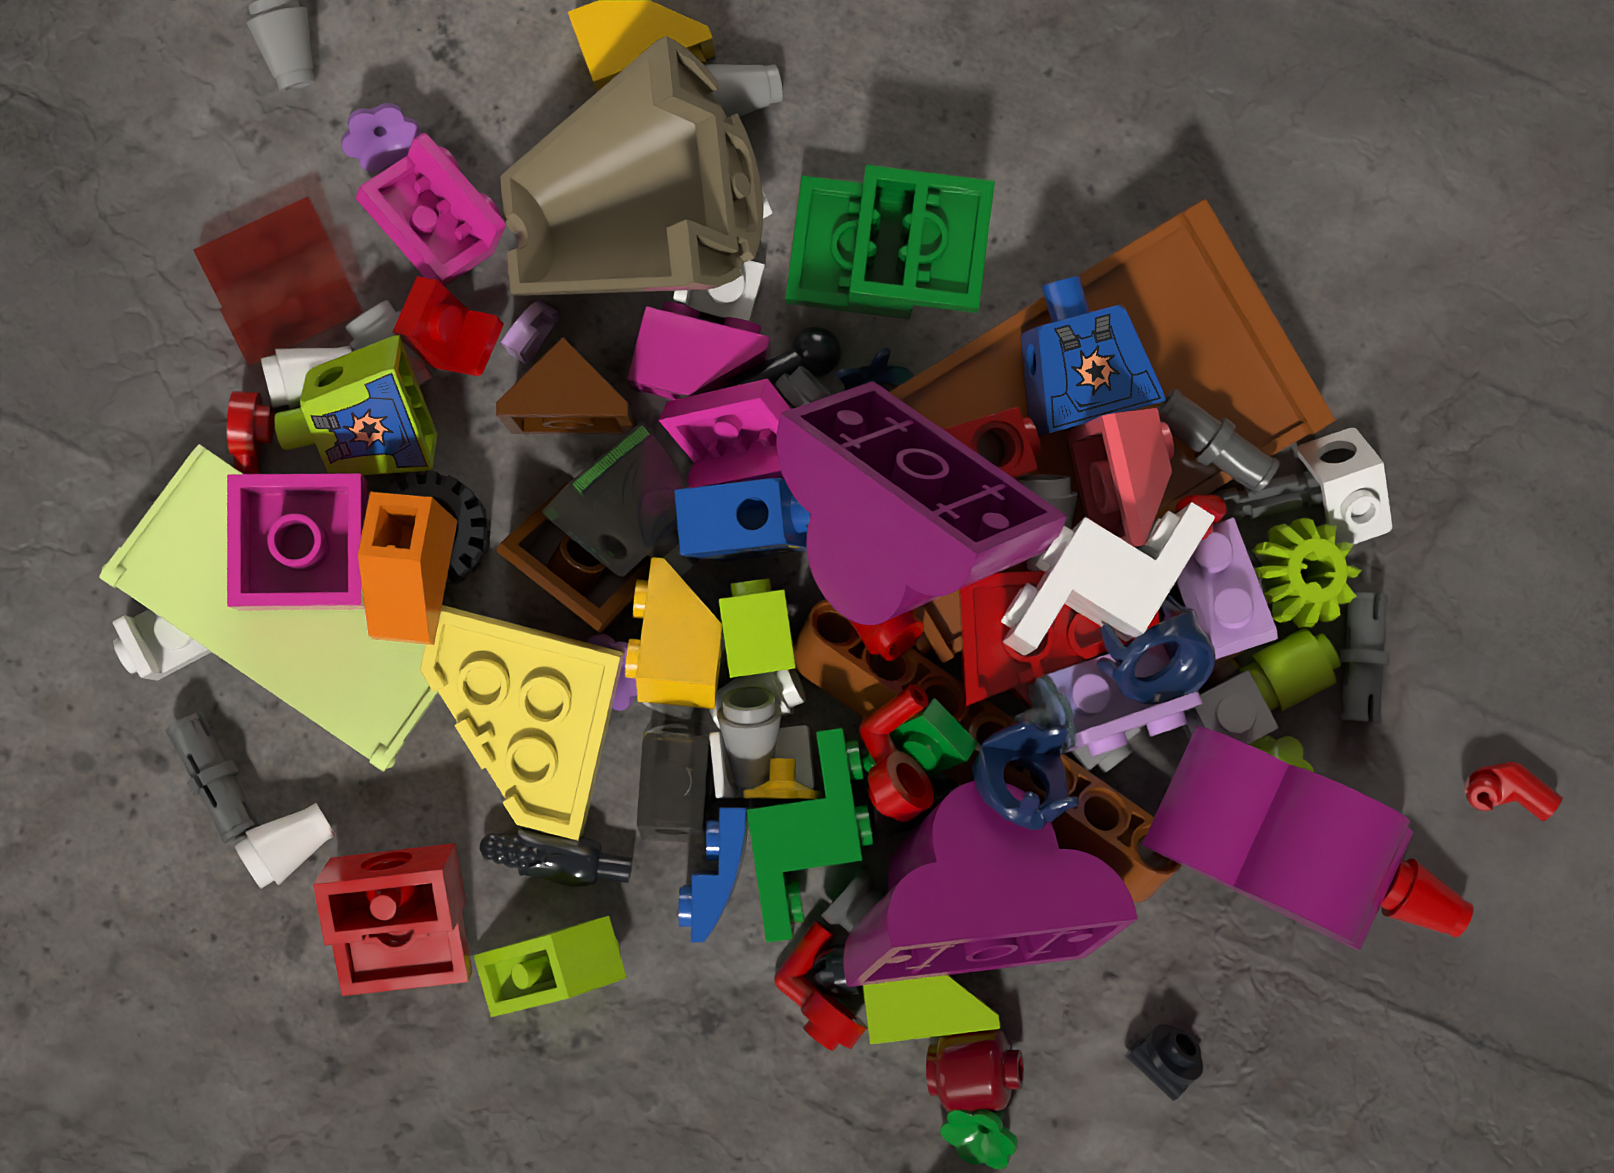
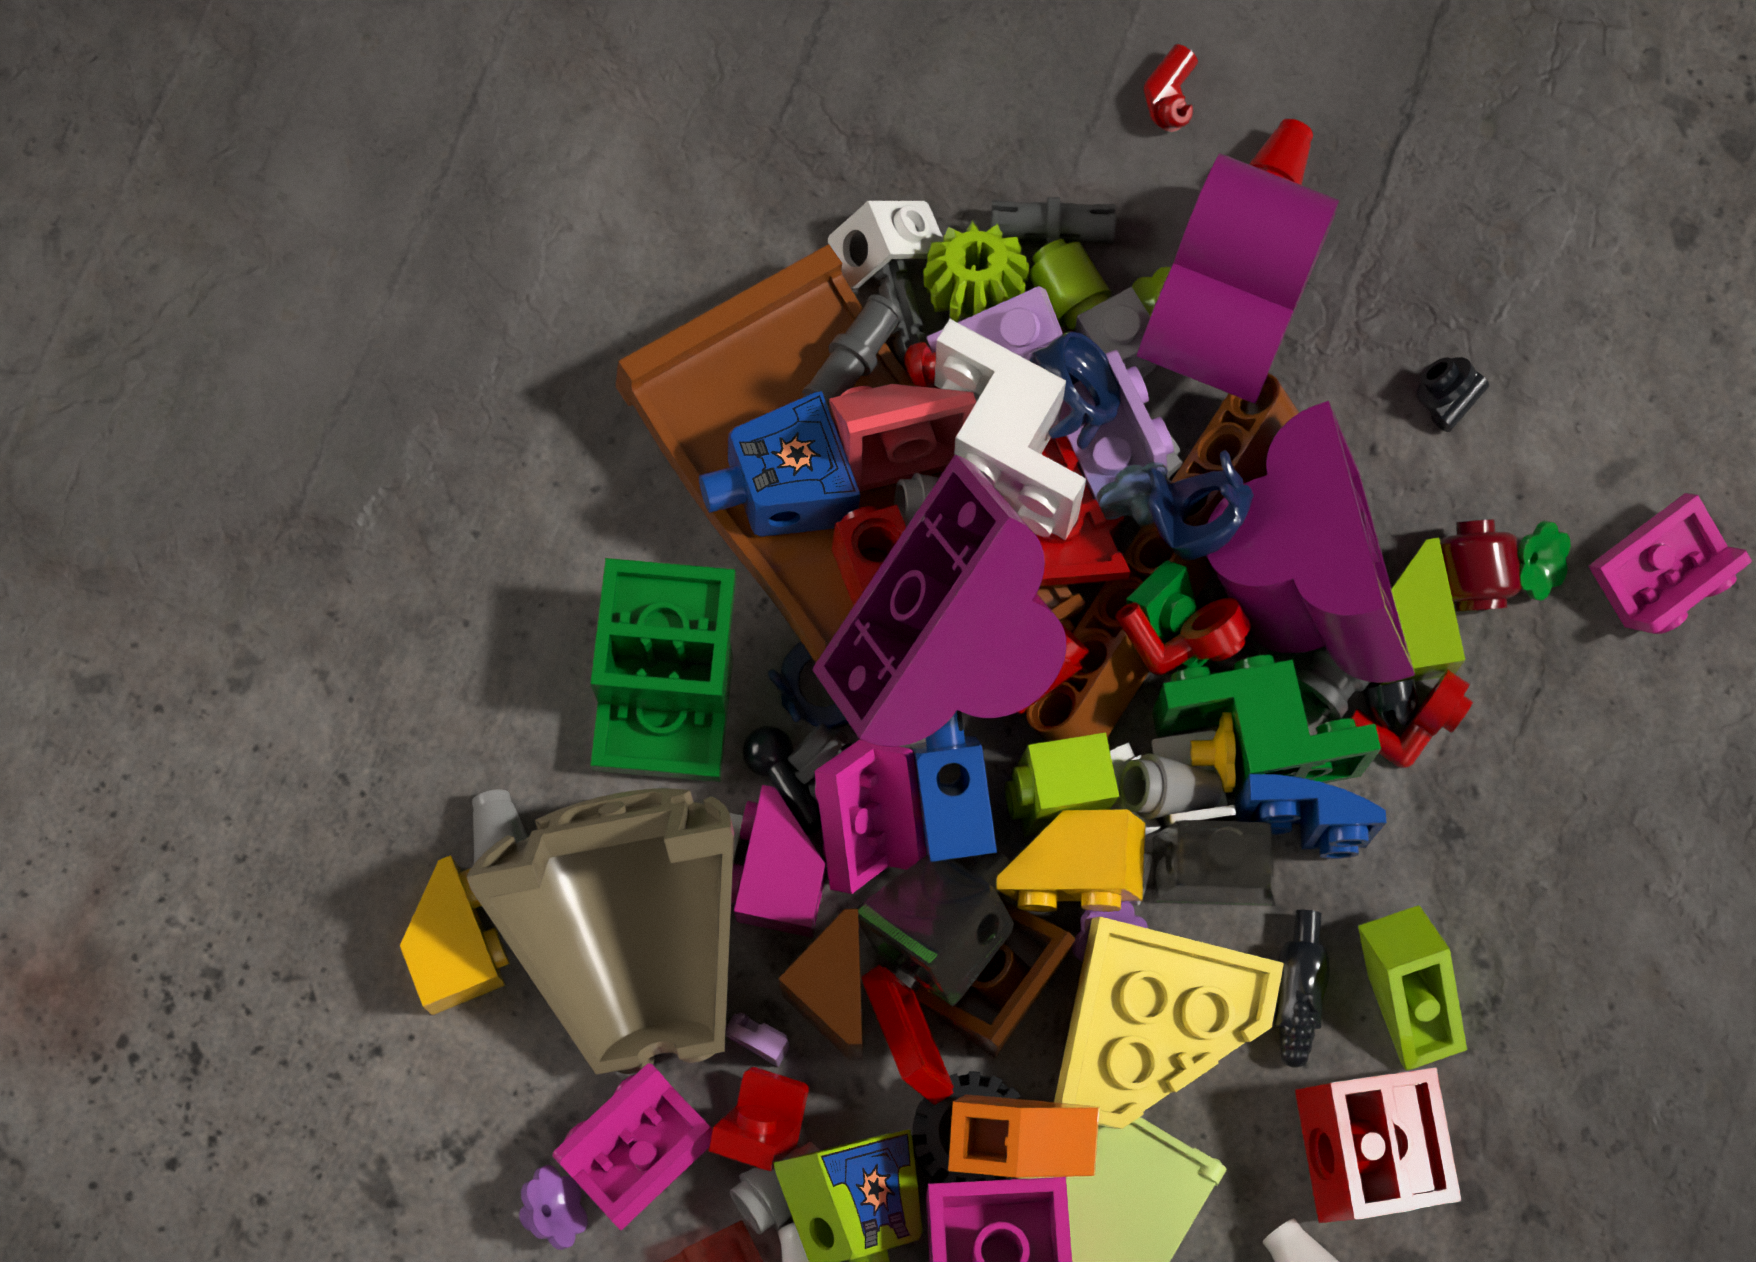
camera: 95 degrees left, 10 degrees down
(518, 468) = (907, 1034): none -> red tile

